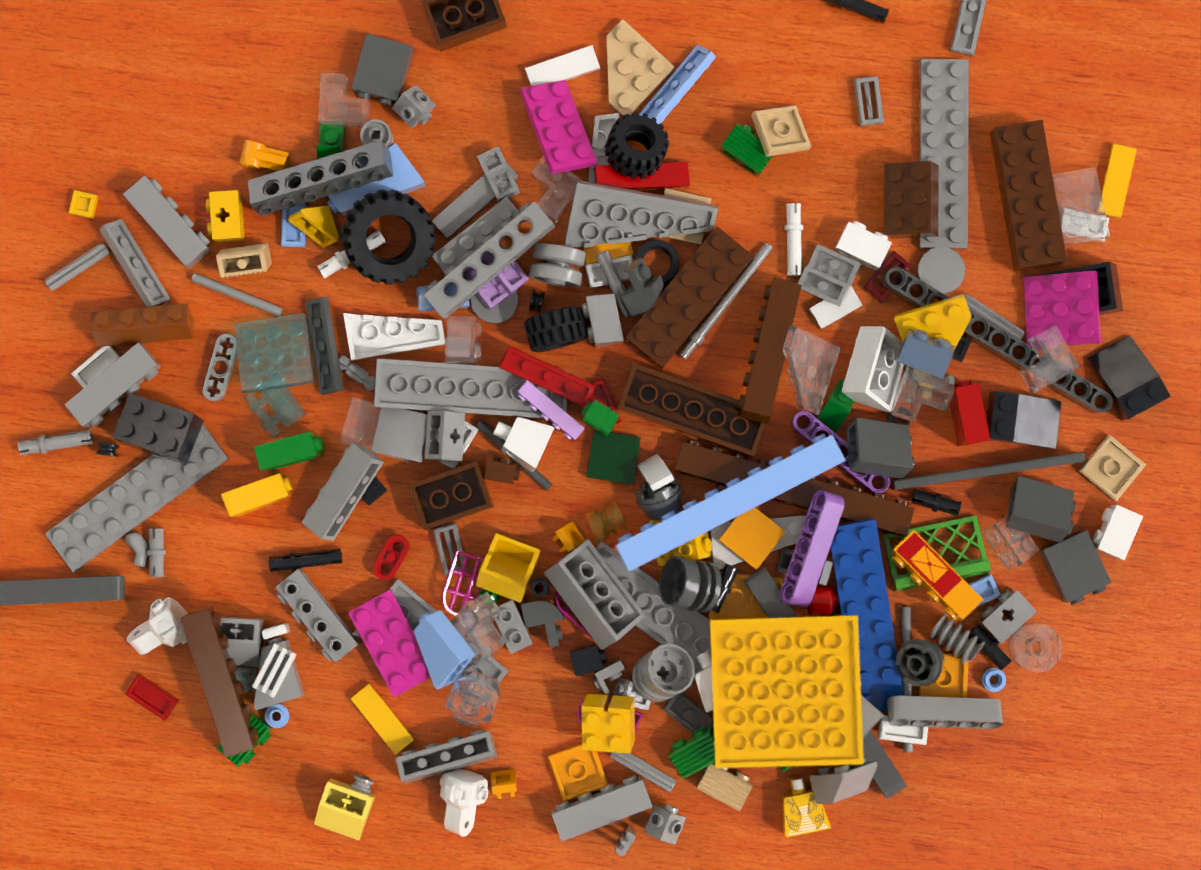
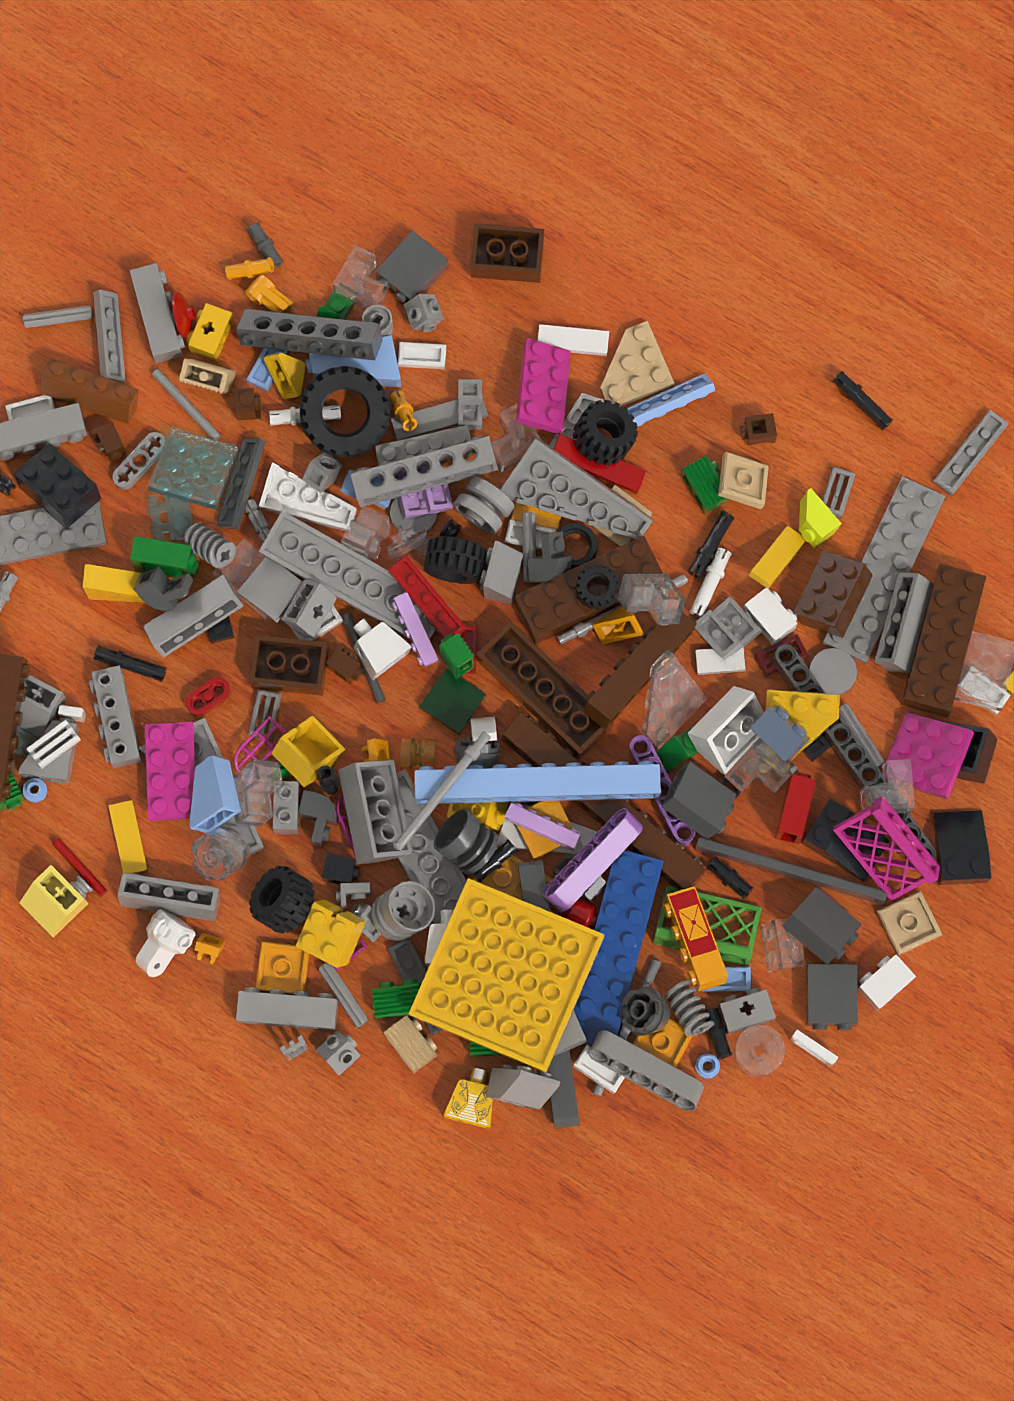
camera: 30 degrees right, 10 degrees down
(83, 204) = (90, 266): yellow tile -> none
(184, 363) = (109, 441): none -> reddish brown brick
(193, 213) = (182, 314): none -> red dish
(233, 139) = (249, 268): none -> light orange pin
(236, 109) = (264, 244): none -> dark grey pin
(294, 269) = (247, 404): none -> reddish brown brick
(301, 484) = (161, 592): none -> dark grey brick
(324, 419) = (210, 545): none -> light grey piece
(351, 765) = (79, 867): none -> red bar
(394, 302) = (322, 472): none -> light grey brick
(431, 147) = (422, 355): none -> white tile
(440, 209) = (403, 410): none -> light orange pin
(503, 331) = (406, 541): none -> clear hips
(550, 714) = (281, 899): none -> black tyre
(659, 506) = (470, 754): none -> light grey bar
(698, 280) = (597, 572): none -> black tyre
(730, 319) = (617, 626): none -> light orange slope
(751, 537) = (542, 826): none -> lavender piece
(752, 278) = (652, 594): none -> clear brick
(777, 68) = (764, 423): none -> reddish brown brick
(777, 211) = (706, 552): none -> black pin
(845, 188) = (777, 557): none -> yellow tile
(862, 136) = (816, 519): none -> neon yellow slope
(986, 196) = (904, 622): none -> light grey brick
(1080, 621) = (814, 1048): none -> white tile
(1081, 403) = (905, 842): none -> dark pink fence

